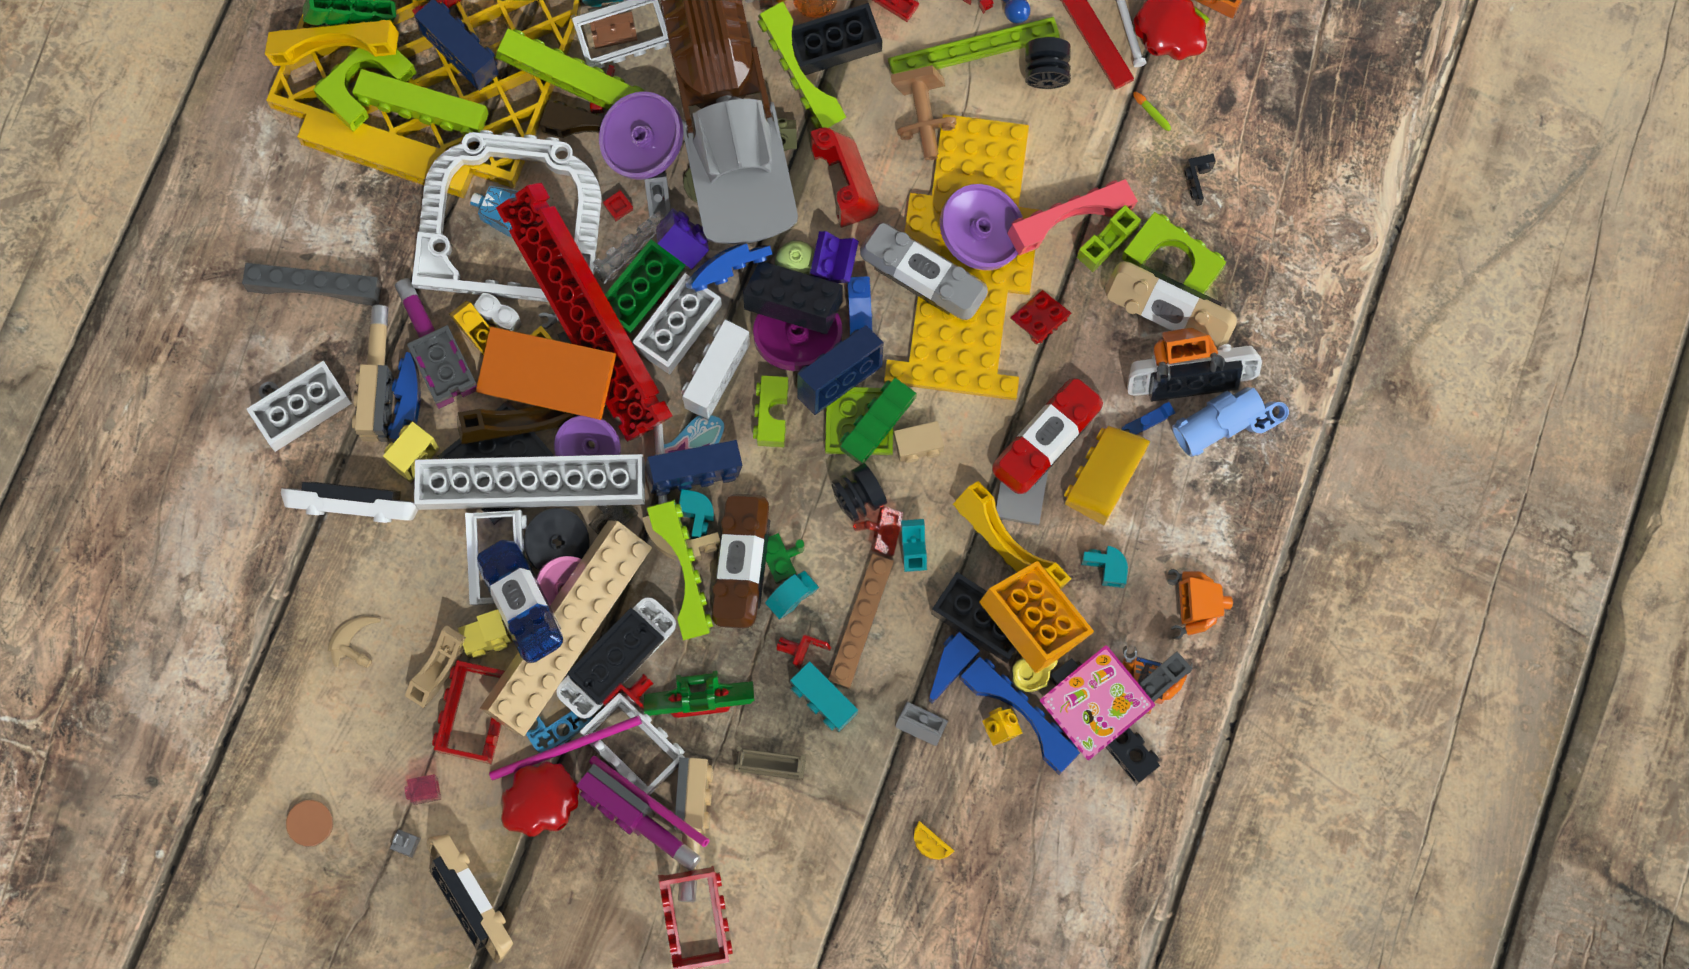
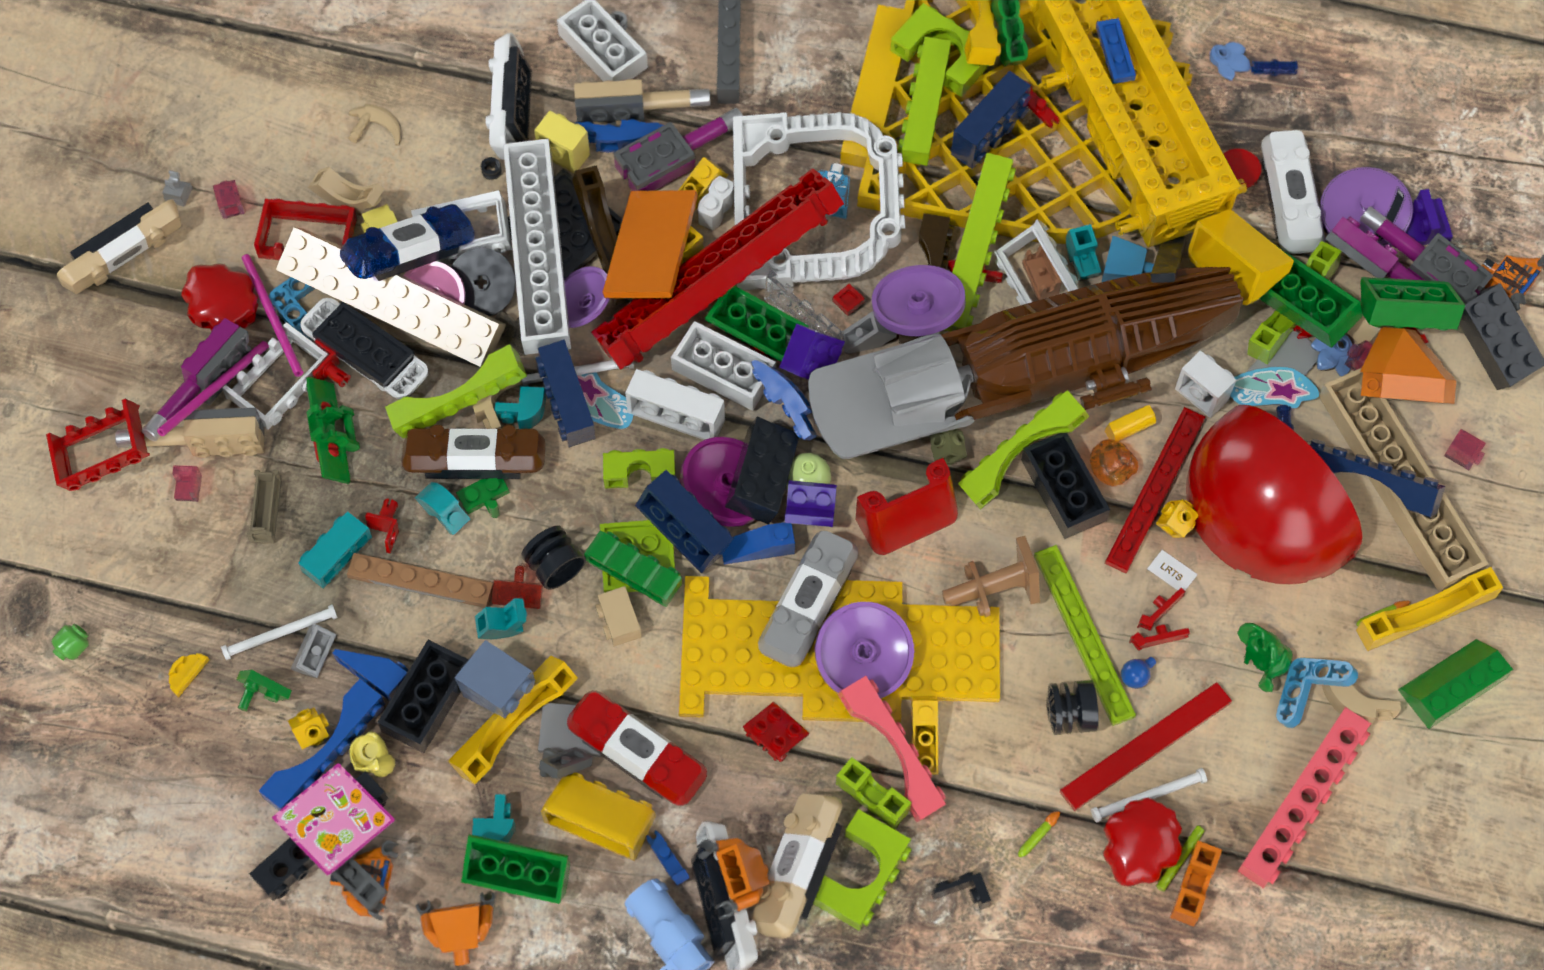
camera: 85 degrees right, 10 degrees down
(309, 823) = (195, 110): nougat tile -> none
(416, 527) = (489, 174): none -> black bush
(738, 838) = (187, 483): none -> clear pink panel
(892, 950) = (70, 642): none -> bright green head
(900, 753) = (278, 632): none -> white bar
(958, 771) = (256, 682): none -> green plate
(979, 549) = (494, 680): none -> sand blue slope
(1036, 616) = (421, 741): light orange slope -> none
(1050, 189) = (925, 730): none -> yellow slope
(1060, 497) = (563, 763): none -> dark grey plate
(1157, 546) = (515, 869): none -> green slope

